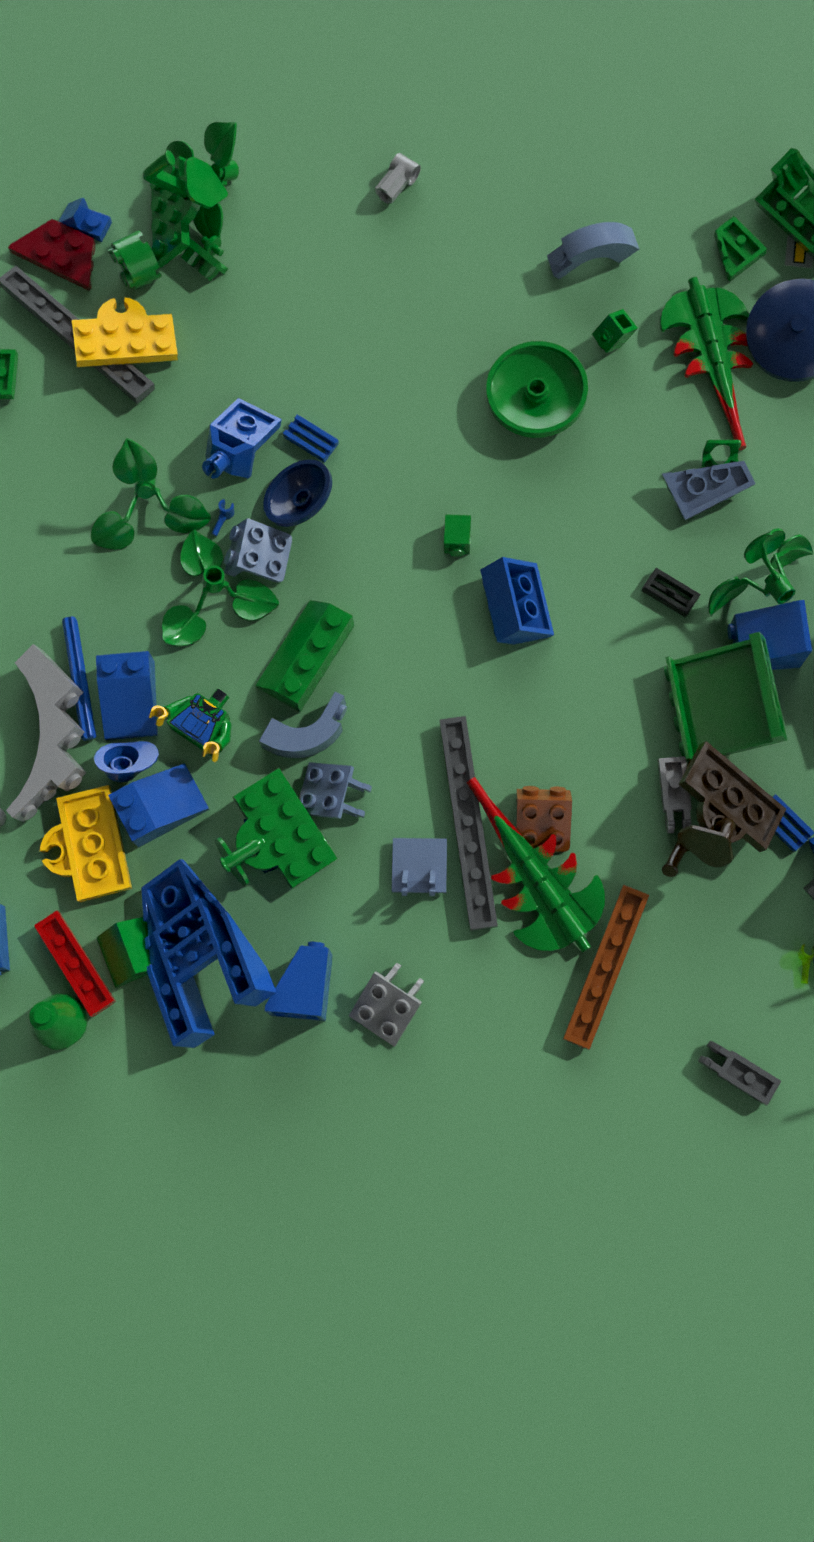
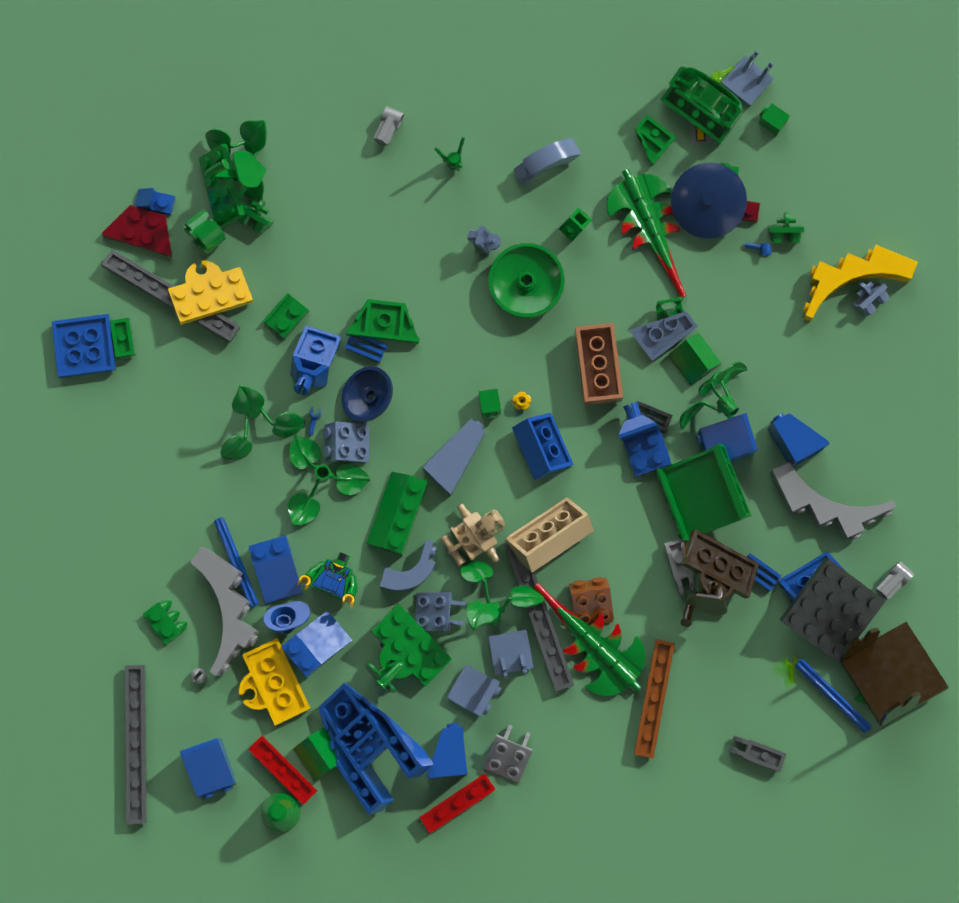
camera: 20 degrees left, 5 degrees up
(216, 384) = (286, 316): none -> green plate
(302, 1057) = (457, 803): none -> red plate
(340, 410) = (384, 321): none -> green wing
(358, 907) = (474, 691): none -> sand blue bracket
(386, 797) = (490, 613): none -> green plant
(397, 594) = (454, 457): none -> sand blue slope
(403, 700) = (475, 535): none -> tan piece
(473, 229) = (454, 158): none -> green plant
(490, 329) = (484, 240): none -> sand blue hips
(502, 547) = (521, 406): none -> yellow plate
(504, 717) = (550, 534): none -> tan slope
(612, 509) = (598, 364): none -> nougat brick
(654, 619) = (643, 442): none -> blue plate
(739, 524) = (694, 358): none -> green slope

